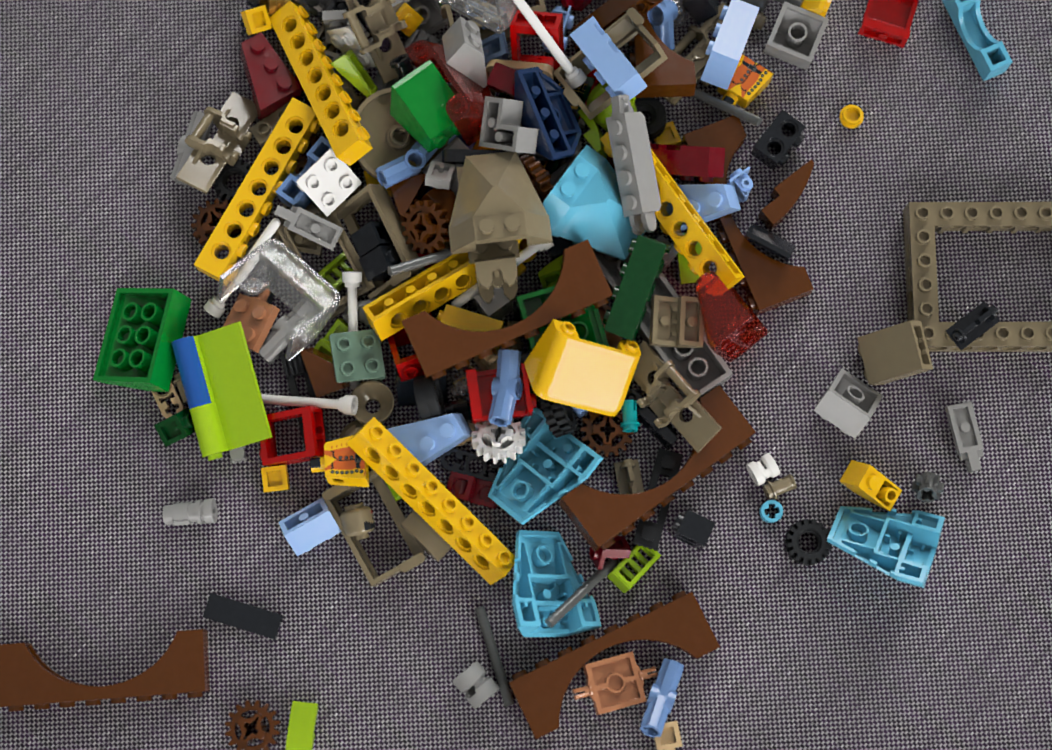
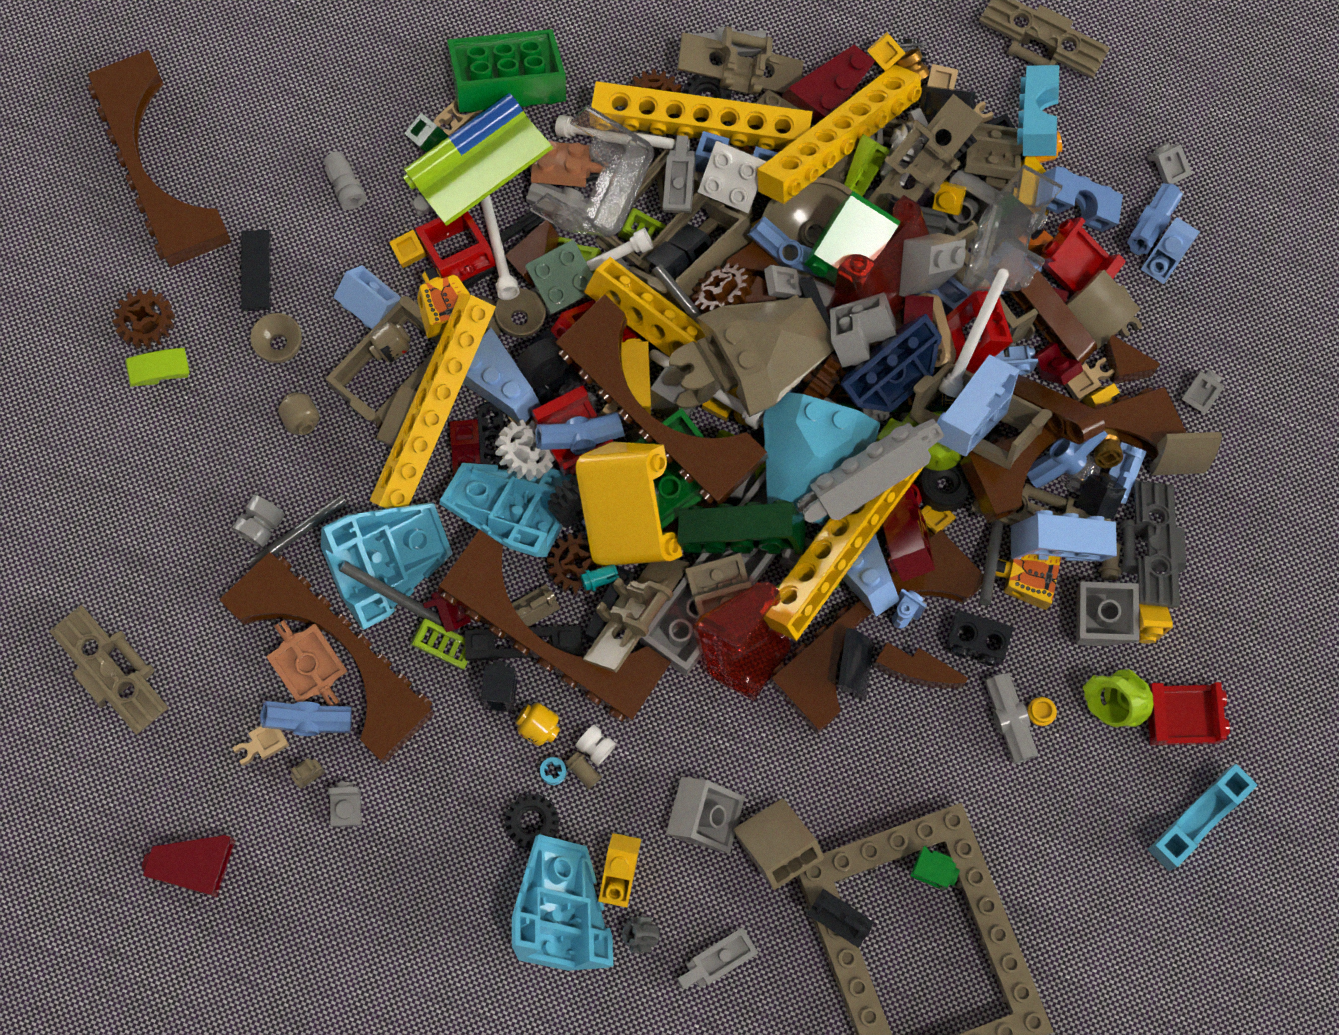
camera: 65 degrees right, 5 degrees down
(304, 610) = (275, 326): none -> dark tan piece
(391, 620) = (298, 413): none -> dark tan head
(706, 712) = (306, 772): none -> dark tan plate
(730, 510) = (537, 724): none -> yellow head
(743, 690) = (345, 805): none -> light grey bracket
(850, 140) = (1011, 718): none -> light grey piece
(868, 49) = (1126, 697): none -> lime helmet
(958, 240) = (935, 869): none -> green window

